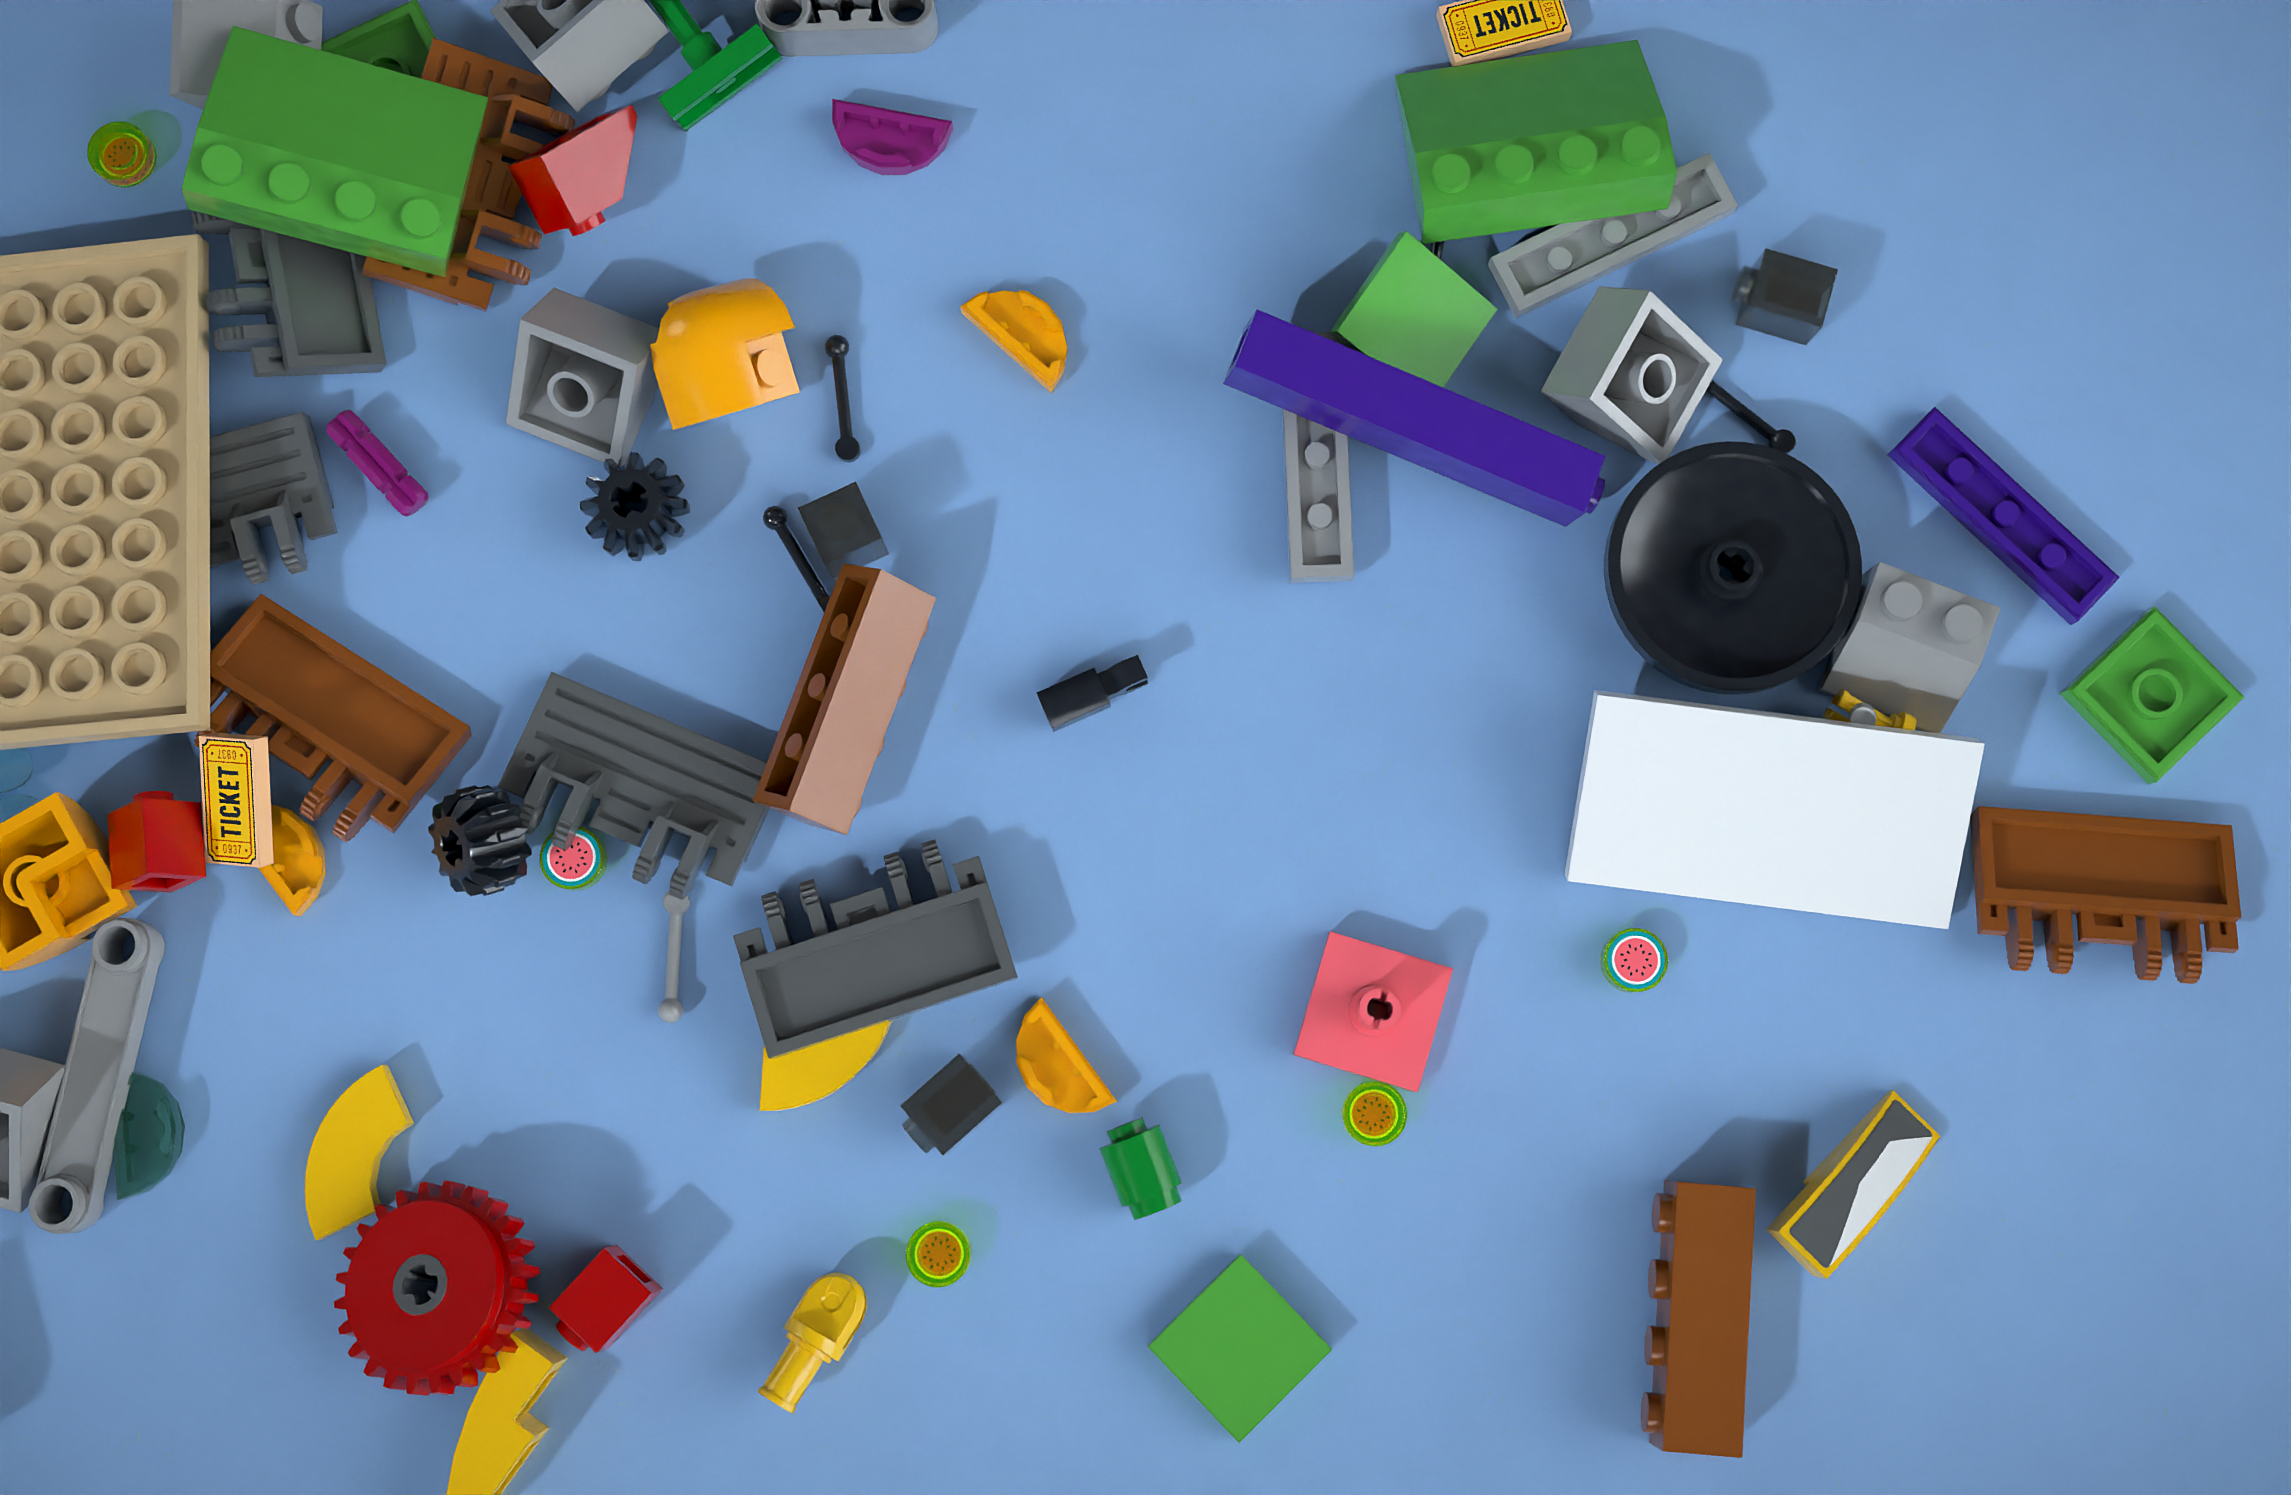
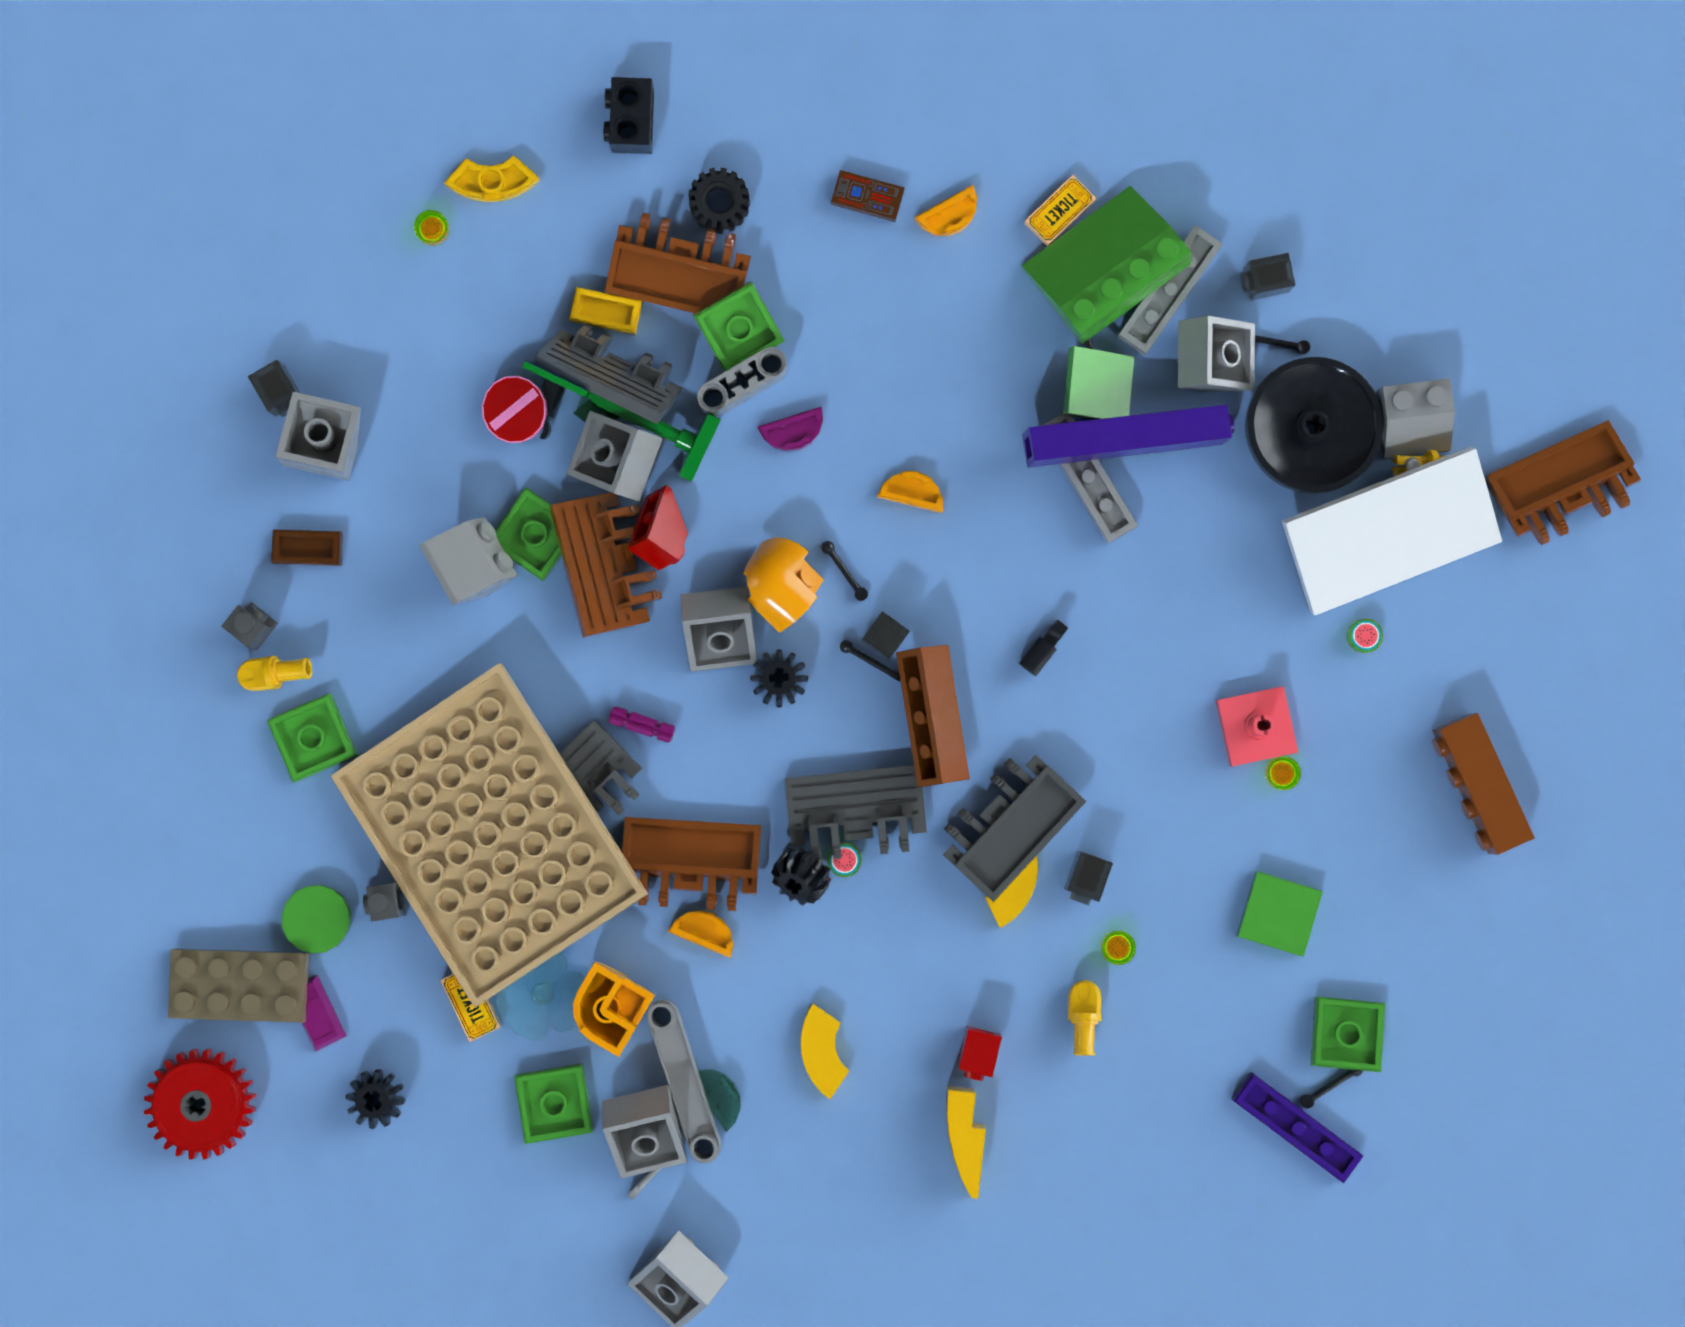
camera: 30 degrees left, 5 degrees up
(121, 154) = (427, 642): clear neon green tile -> none
(156, 843) = (650, 960): red brick -> none
(236, 799) = (676, 919): tile -> none
(314, 304) = (548, 642): dark grey hinge -> none
(334, 151) = (546, 586): bright green slope -> none
(441, 1337) = (925, 1084): red gear -> none
(670, 1008) = (930, 904): light grey hinge -> none
(1055, 1065) = (1123, 831): light orange tile -> none
(1141, 1168) = (1191, 857): green brick -> none
(1854, 1186) = (1521, 685): slope -> none
(2003, 516) = (1426, 327): dark purple tile -> none
(2152, 695) = (1540, 376): bright green tile -> none

